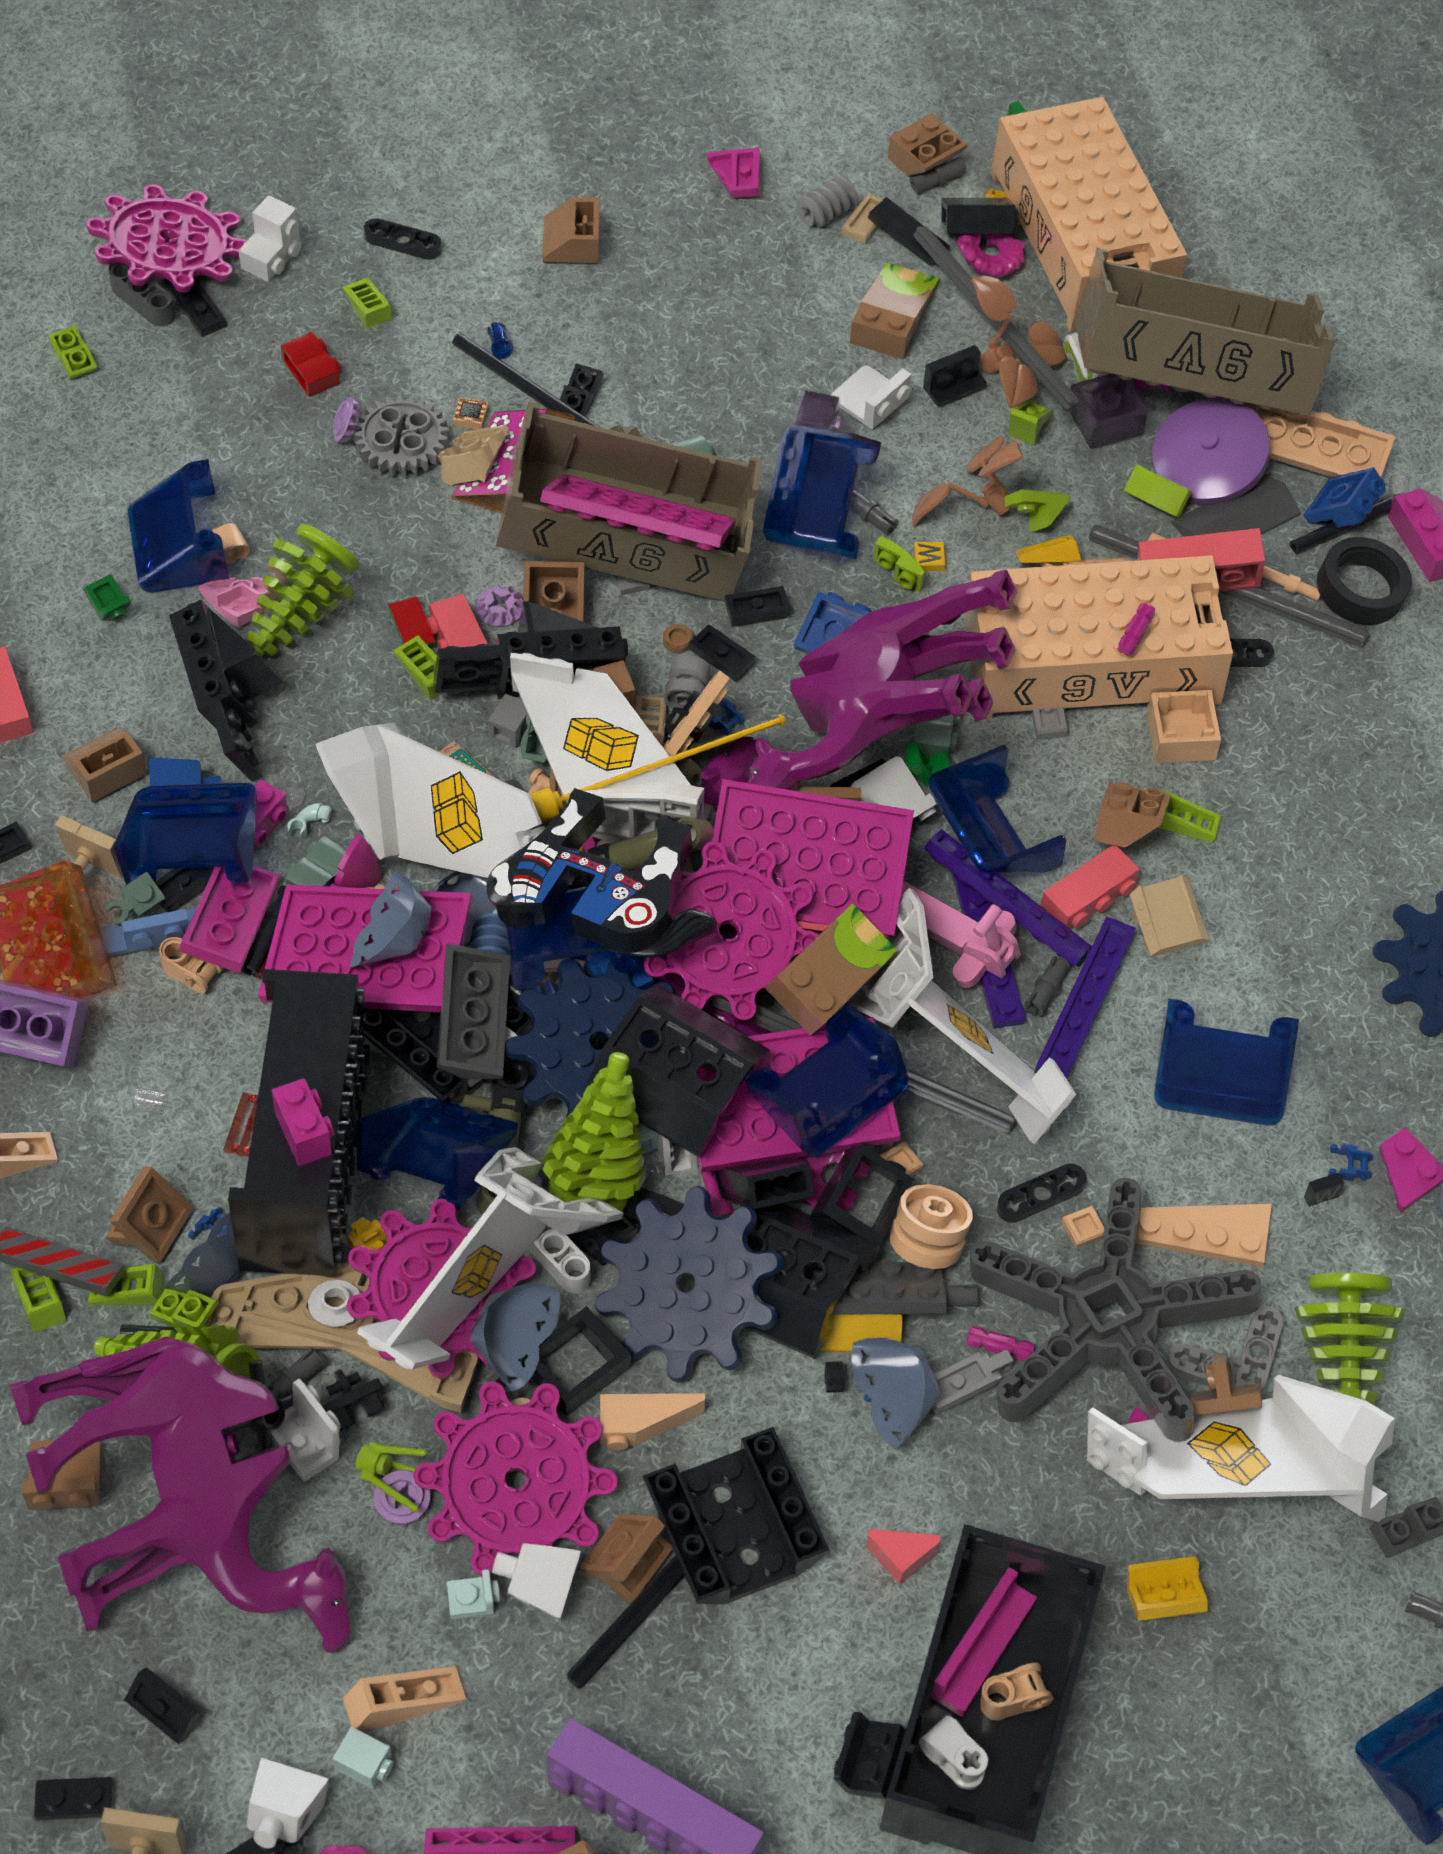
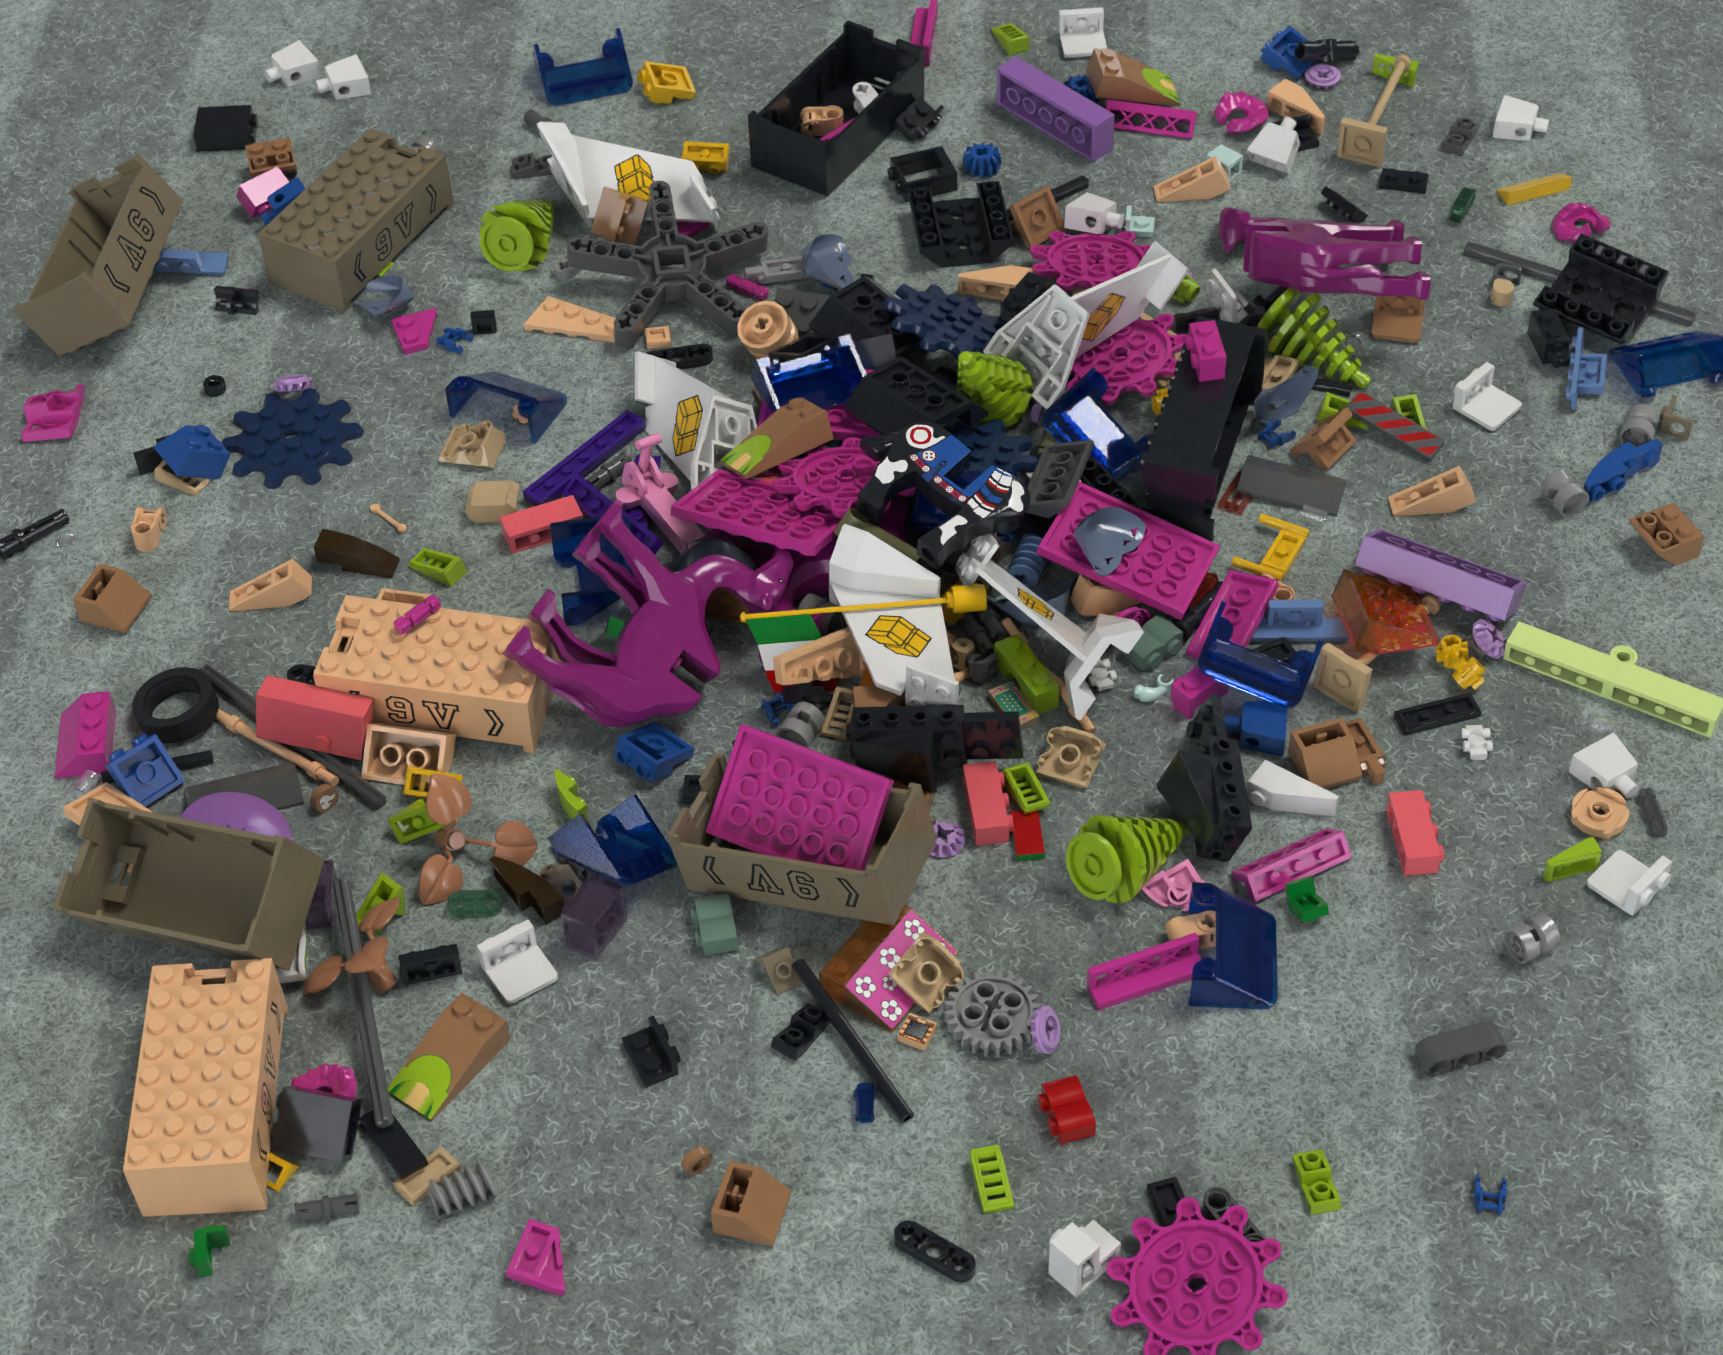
camera: 160 degrees left, 10 degrees down
(64, 787) = (1368, 751): none -> medium nougat hinge
(119, 639) = (1293, 862): none -> dark pink fence
(139, 896) = (1305, 638): sand green plate -> none
(144, 715) = (1287, 792): none -> white slope
(183, 1147) = (1290, 485): none -> dark grey slope
(183, 1309) = (1317, 392): lime slope -> none
(185, 1030) = (1282, 551): none -> yellow plate
(265, 499) = (1142, 978): none -> dark pink fence
(386, 706) = (1070, 756): none -> tan slope
(592, 1329) = (1022, 295): none -> black hinge
(633, 262) = (696, 1160): none -> medium nougat tile
(712, 347) = (652, 1053): none -> black bracket
(753, 1688) = (982, 160): none -> blue gear
(794, 1646) = (922, 161): none -> black window
(878, 482) = (557, 874): none -> dark tan bracket
(902, 1551) = (857, 197): coral slope -> none
(904, 467) = (528, 889): none -> dark brown slope
(923, 145) = (325, 1231): medium nougat slope -> none
(930, 555) = (537, 809): yellow tile -> none
(943, 450) = (475, 903): none -> clear green beam
(1129, 813) = (485, 548): medium nougat slope -> none
(1150, 518) = (324, 798): none -> medium nougat tile
(1157, 490) = (305, 816): lime slope -> none
(1233, 990) = (474, 445): none -> tan slope
(1284, 802) = (354, 554): none -> dark brown slope
(1299, 1754) = (664, 82): none -> yellow plate
(1302, 886) = (375, 508): none -> light nougat hinge
(1348, 739) = (273, 589): none -> light nougat slope

